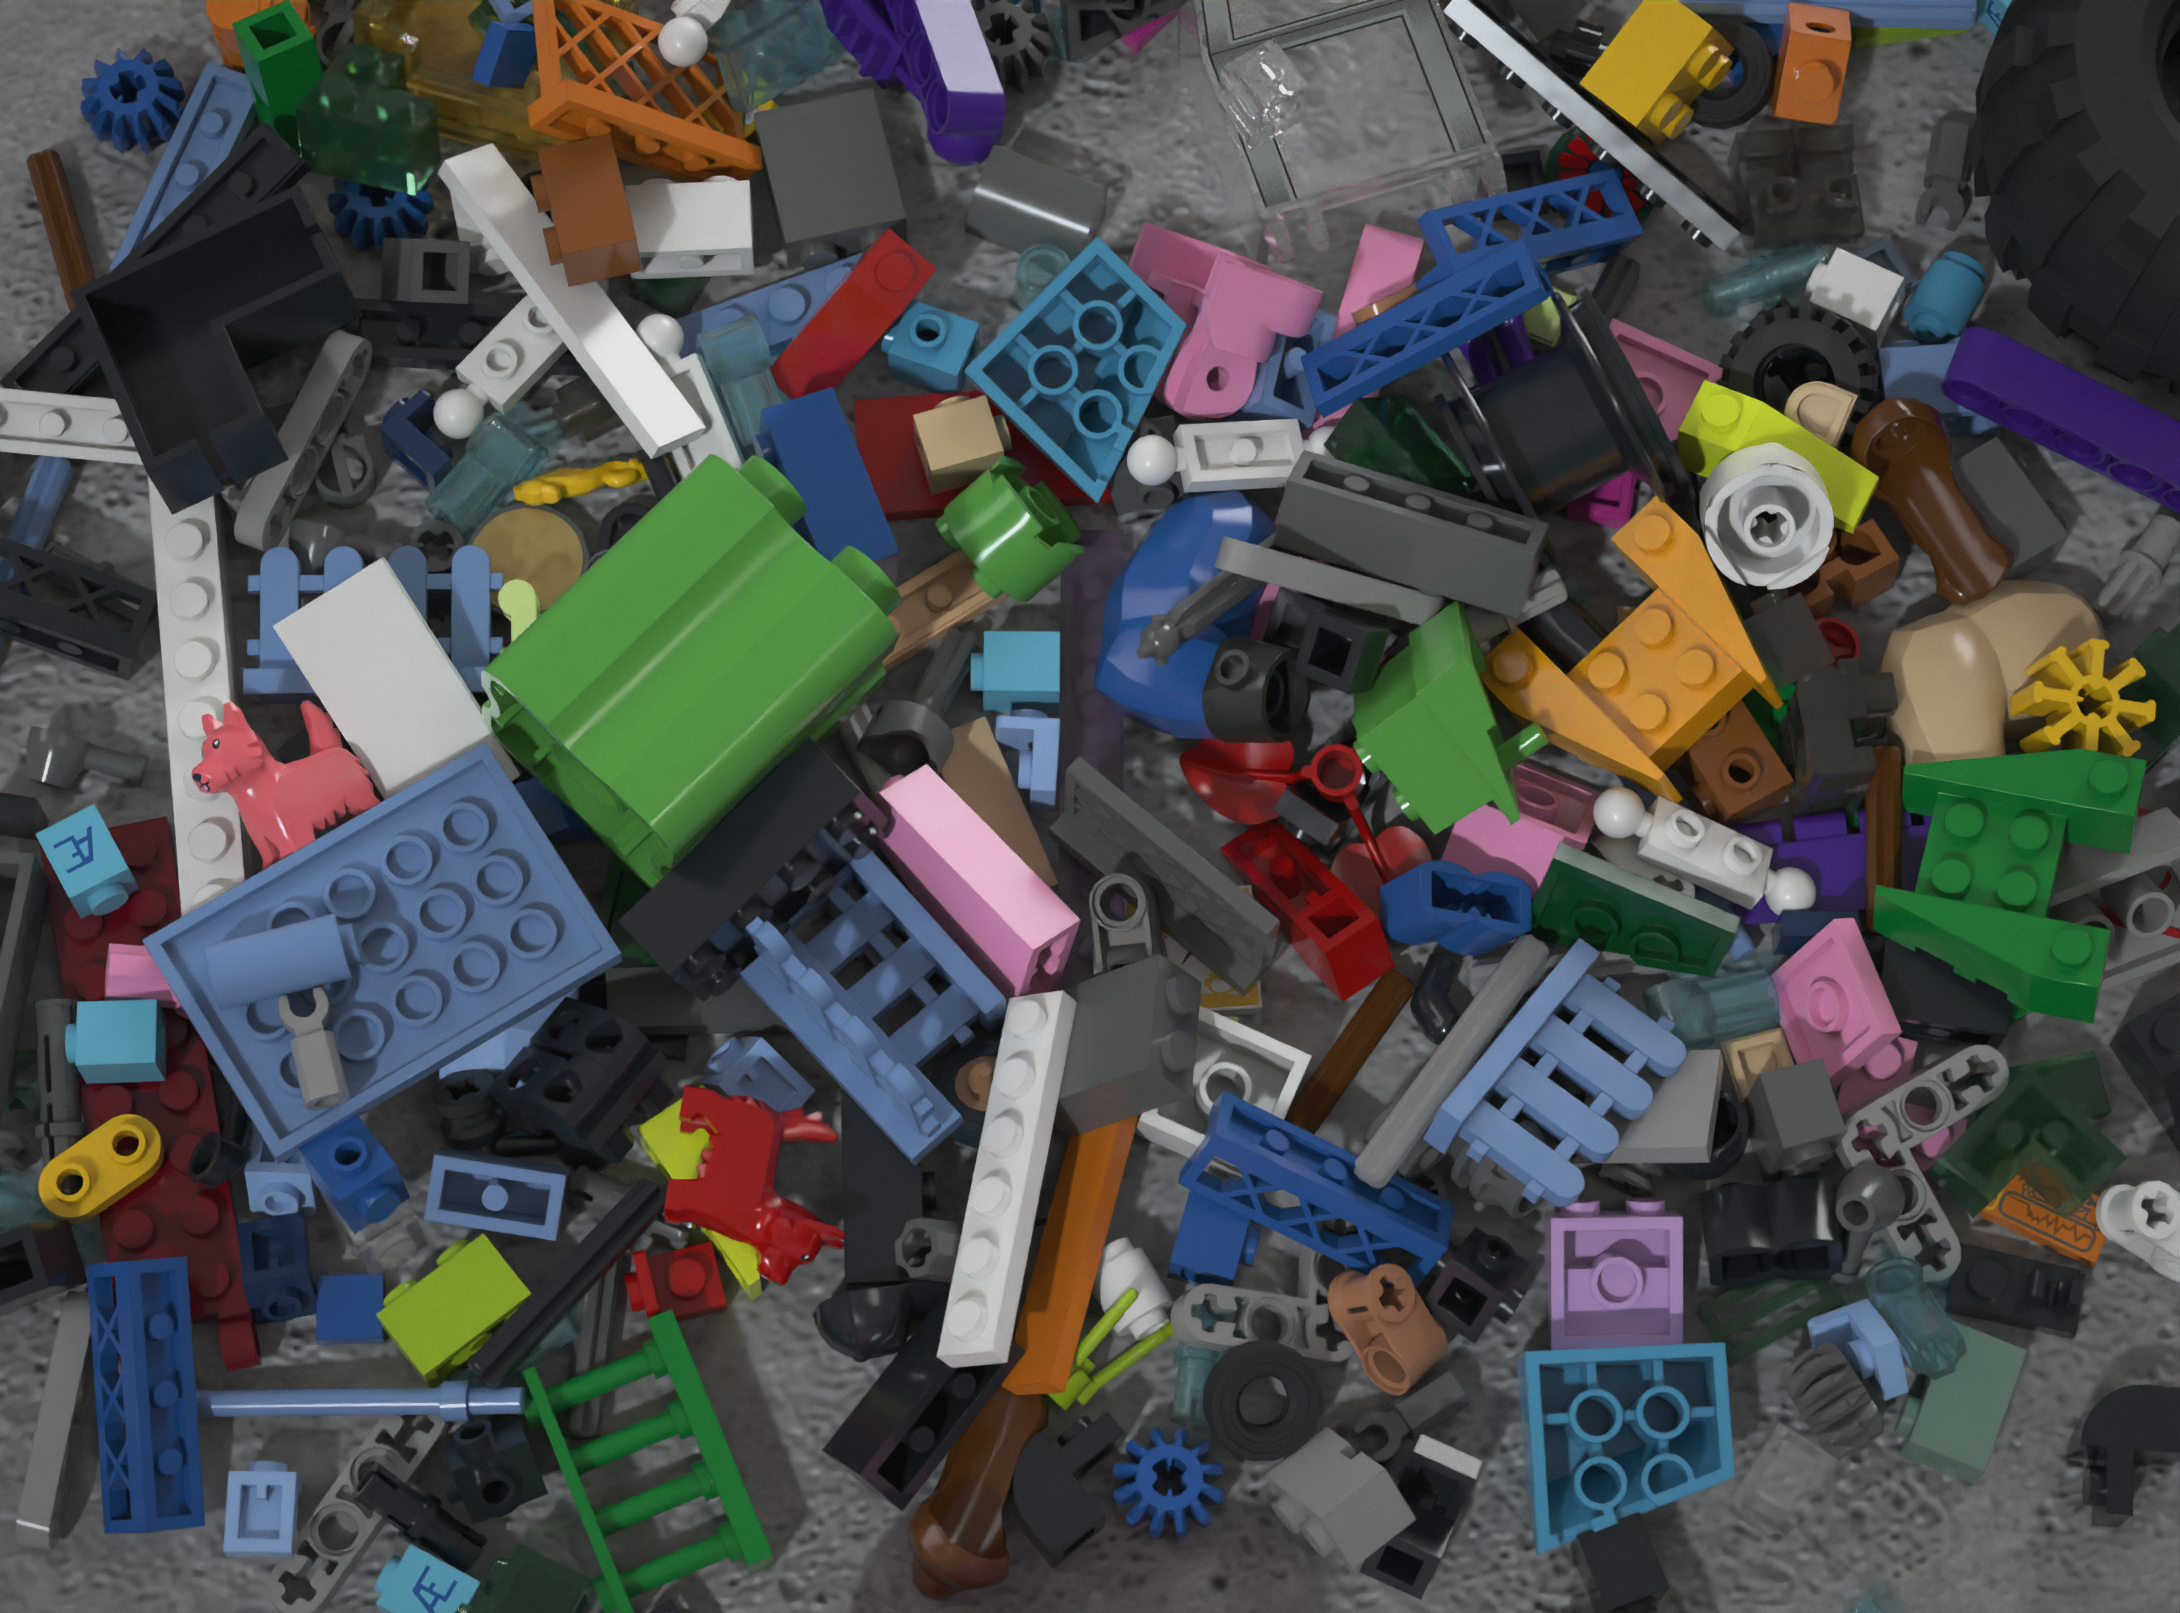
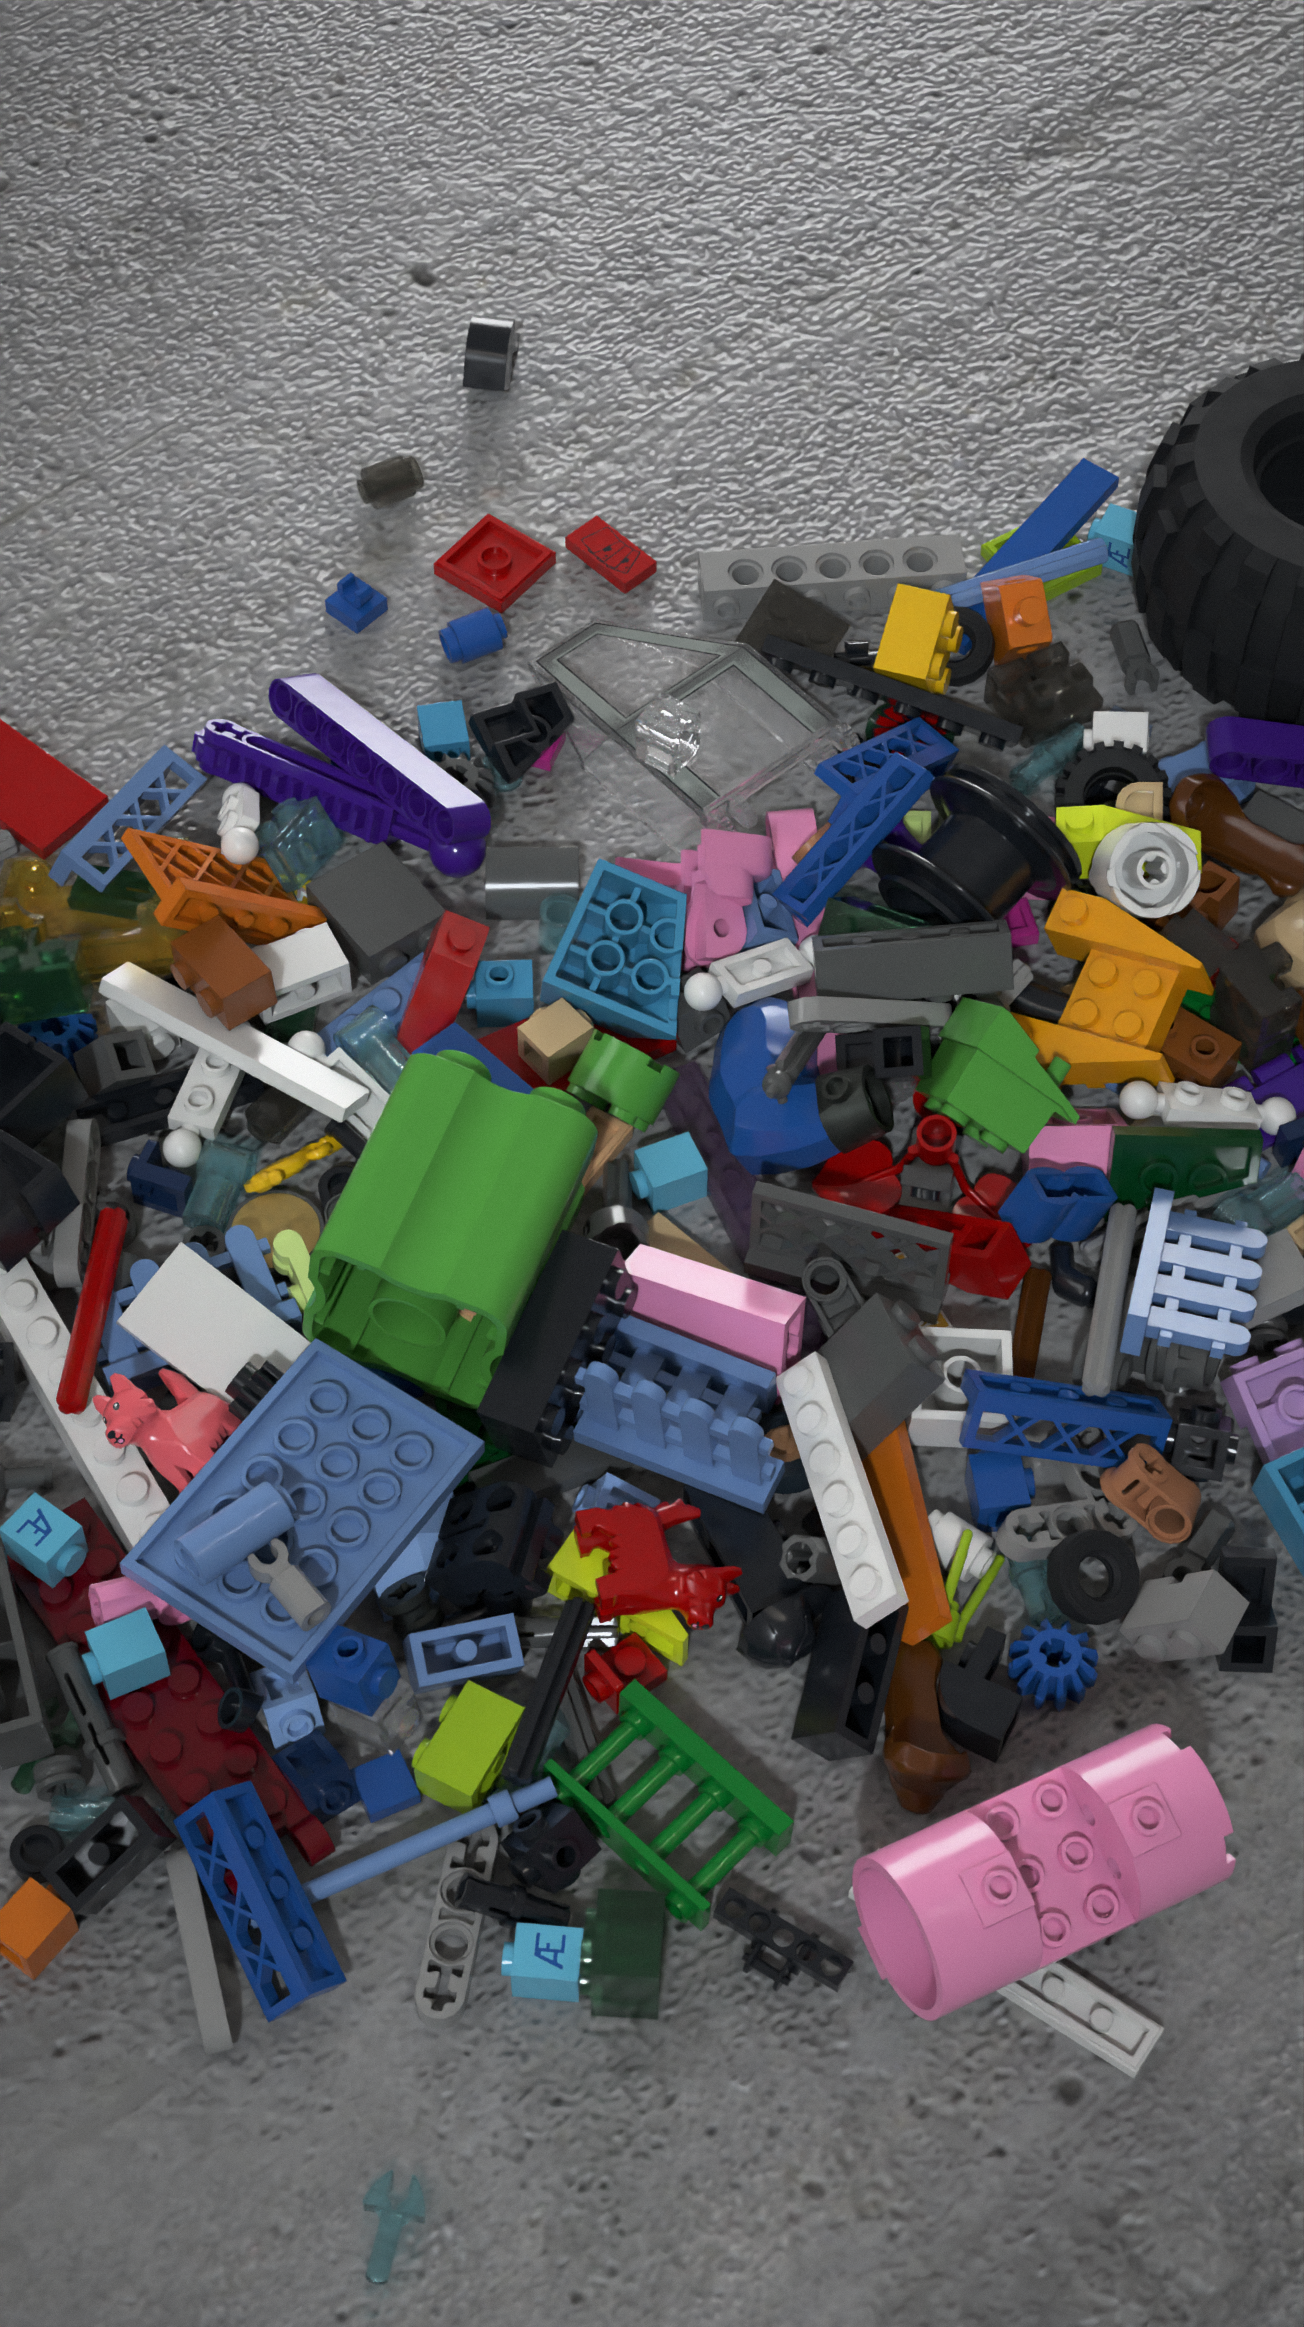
camera: 20 degrees left, 15 degrees down
(103, 1171) = (152, 1748): yellow plate -> none
(255, 596) = (92, 1311): none -> red axle
(262, 1511) = (389, 1948): light blue bracket -> none
(395, 769) = (250, 1387): none -> black gear
(506, 55) = (110, 904): blue tile -> none
(1037, 768) = (710, 1217): light blue bracket -> none
(1945, 298) = (1175, 725): dark azure brick -> none

